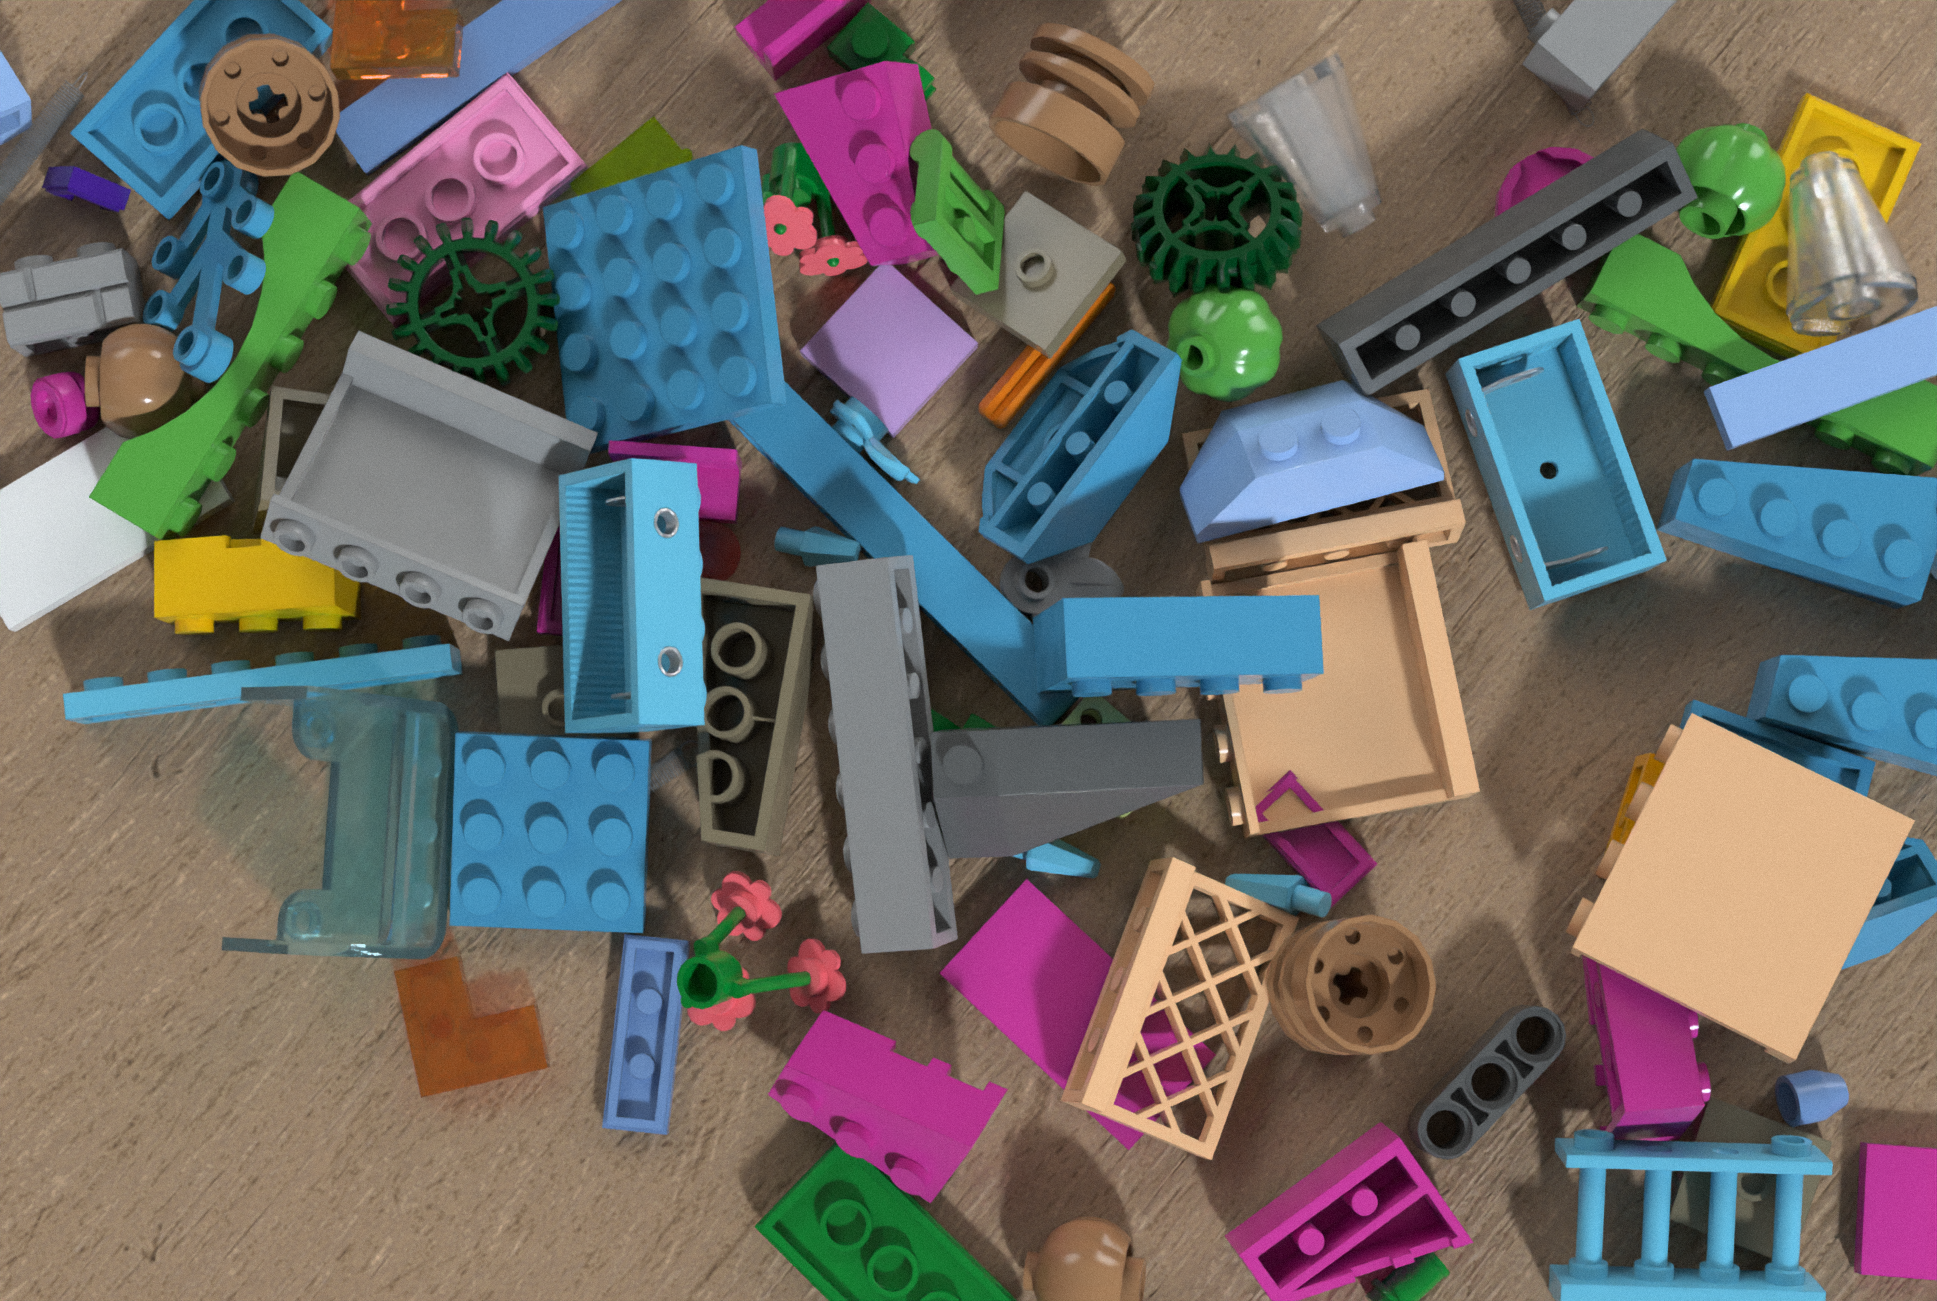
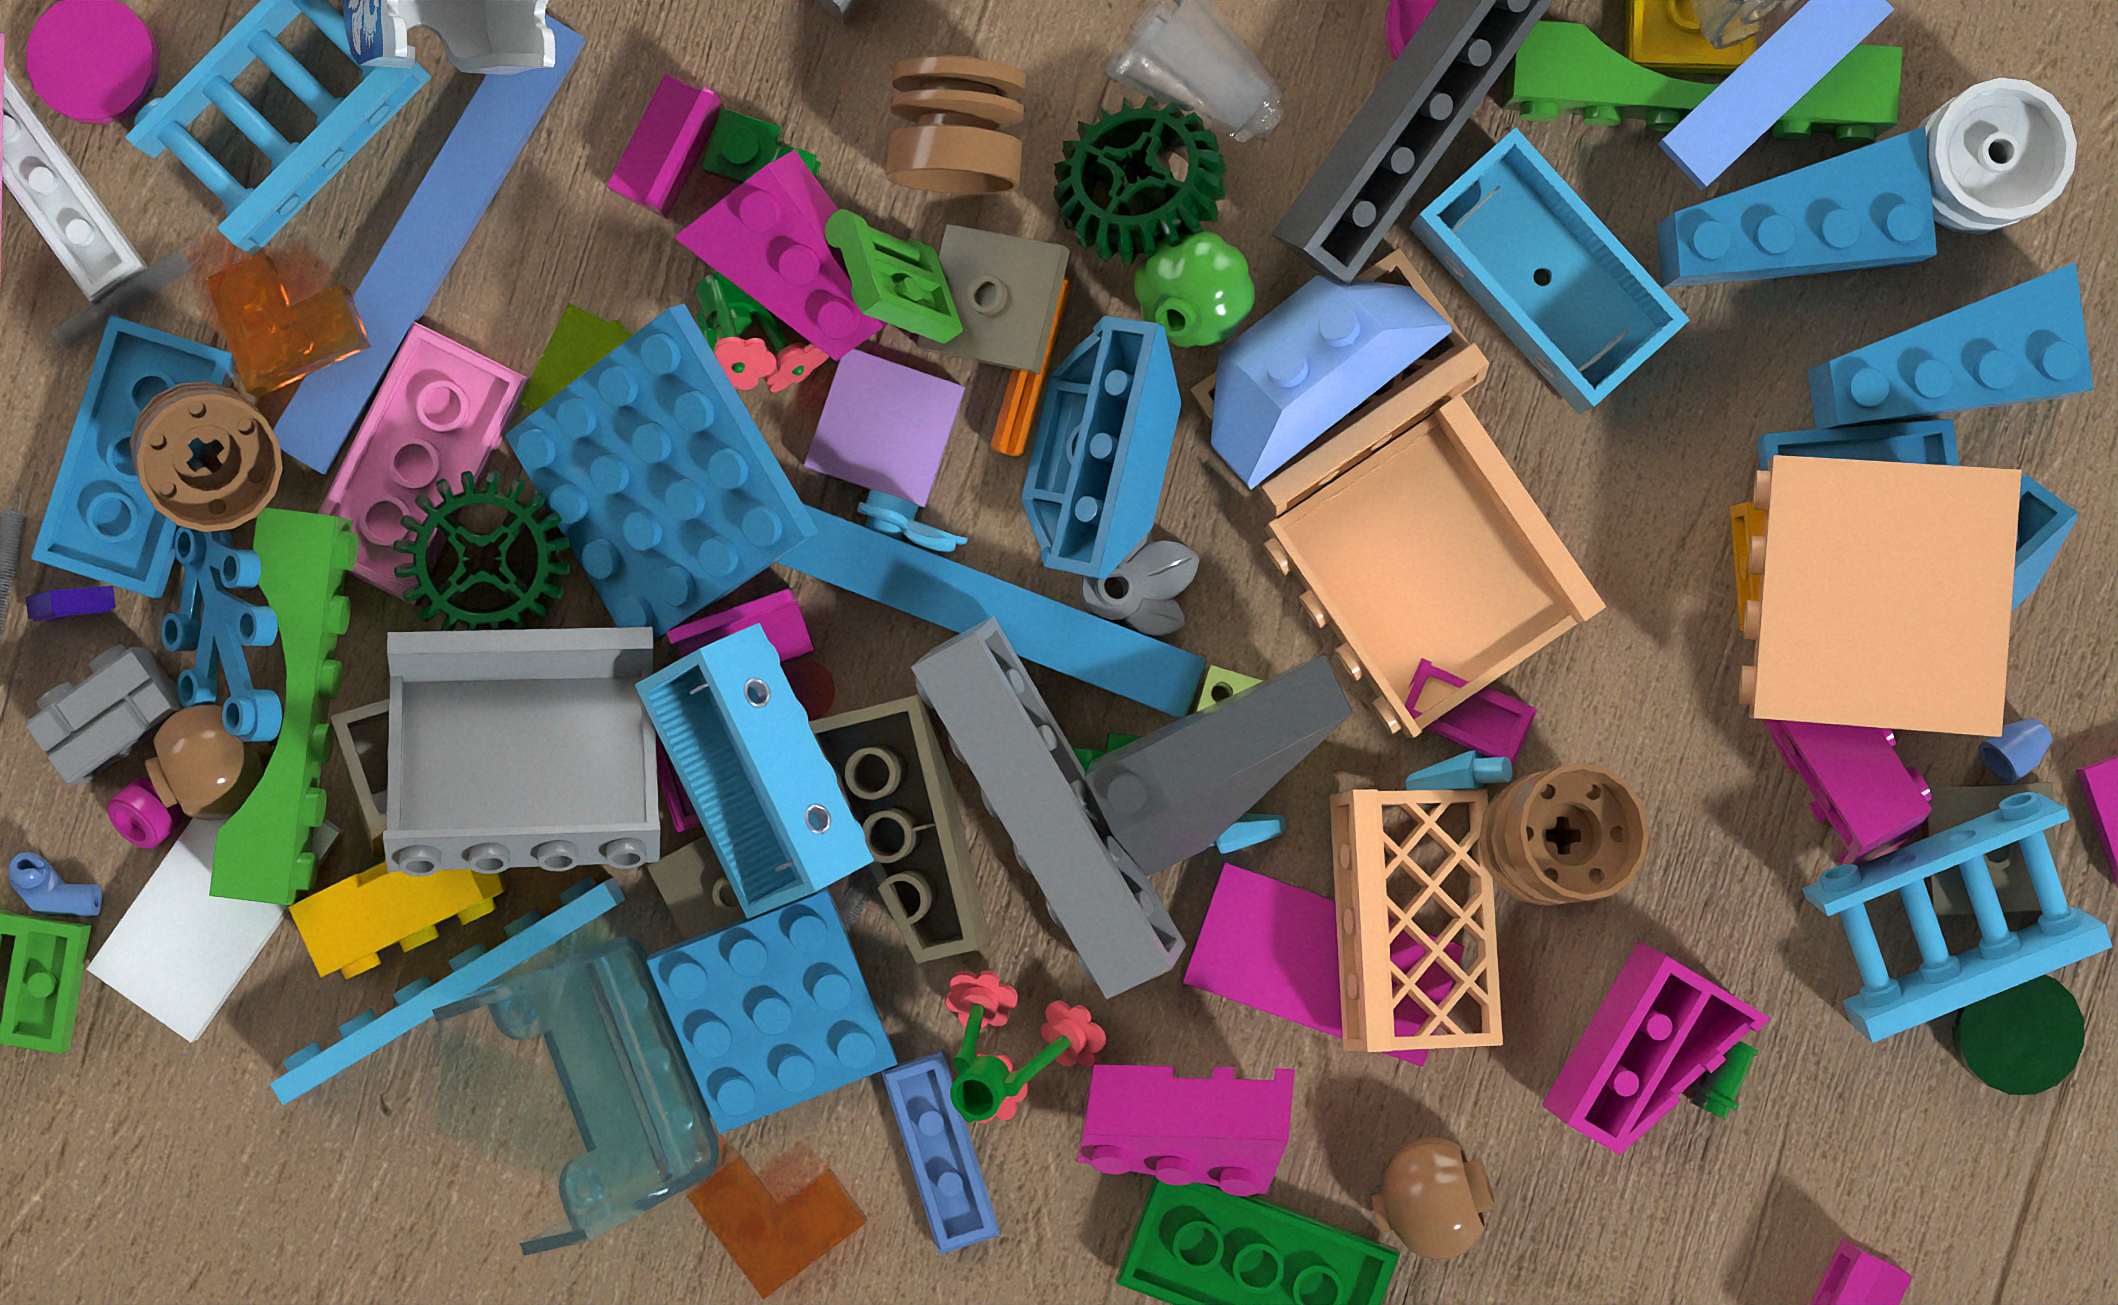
camera: 20 degrees left, 5 degrees up
(816, 546) = (900, 641): medium azure bar -> none
(1177, 643) = (1275, 594): dark azure wedge -> none
(1516, 1072) = (1744, 843): dark grey beam -> none

